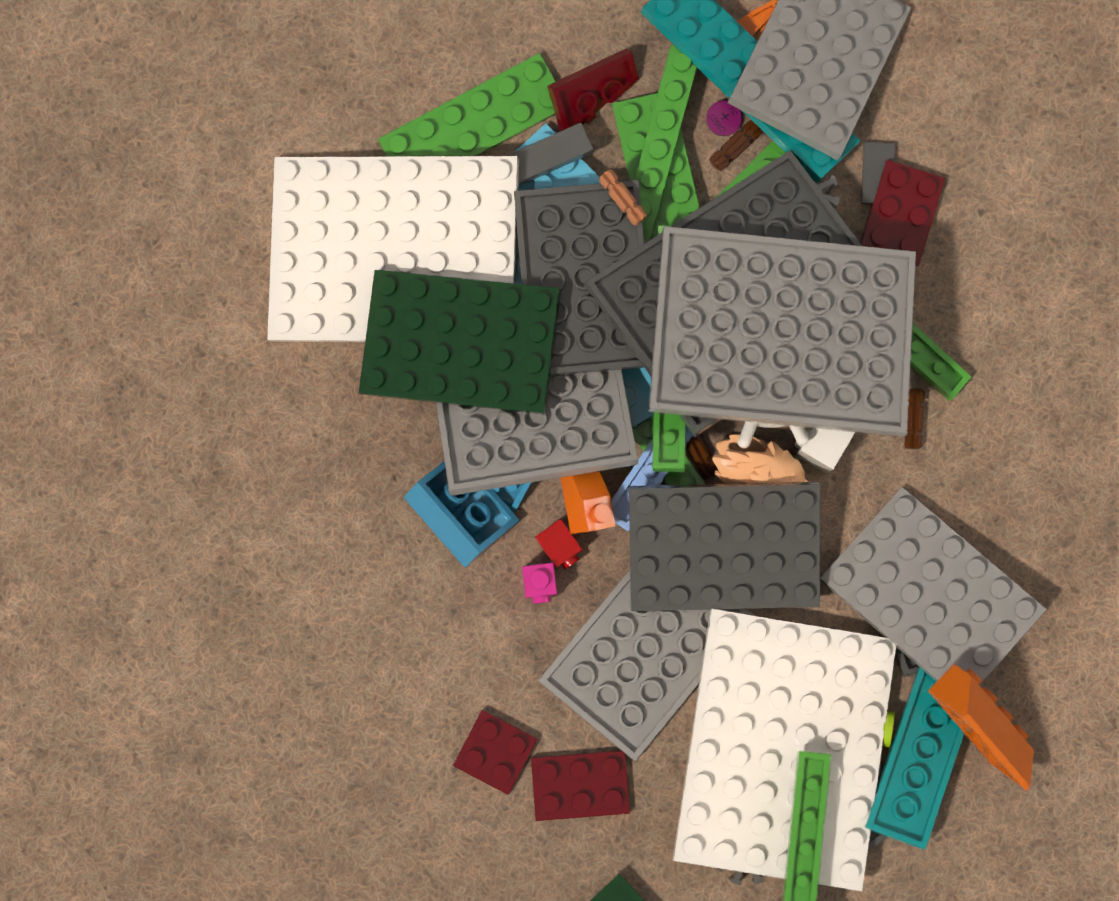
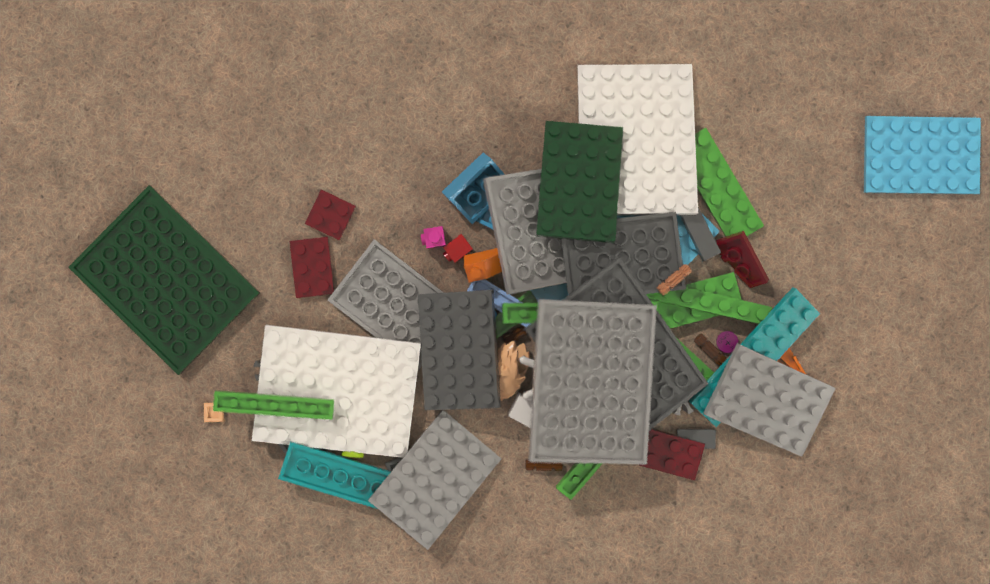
camera: 90 degrees right, 5 degrees up
(985, 723) = (355, 514): orange slope -> none

